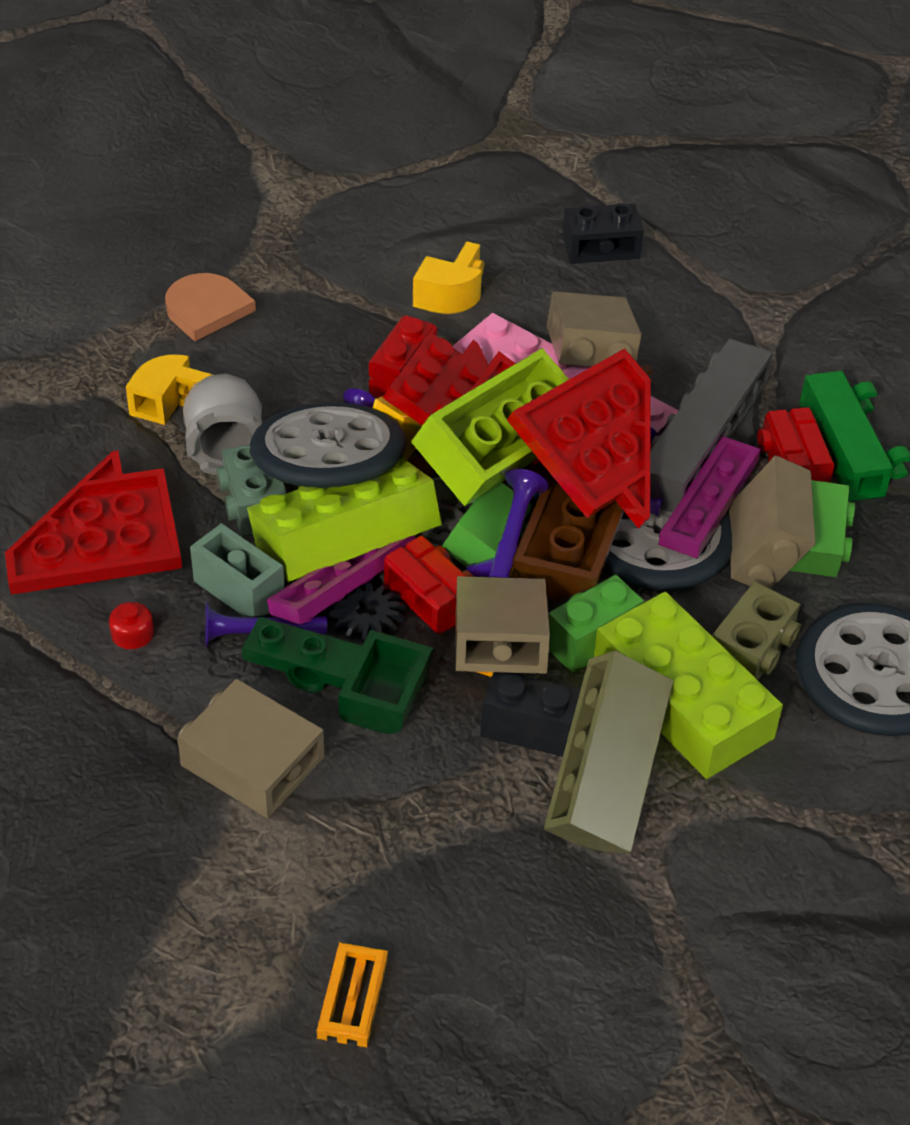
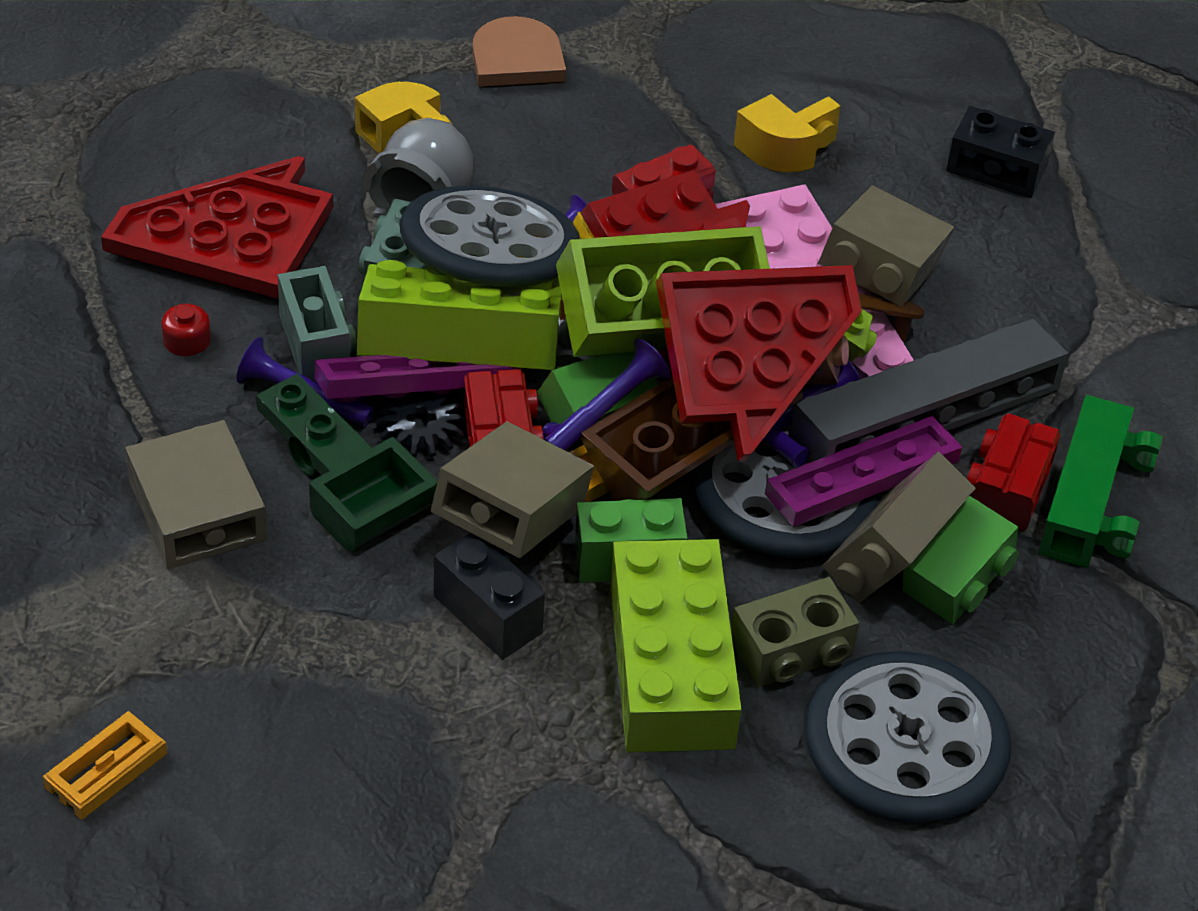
camera: 30 degrees right, 0 degrees up
(609, 754) = (521, 667): olive brick -> none

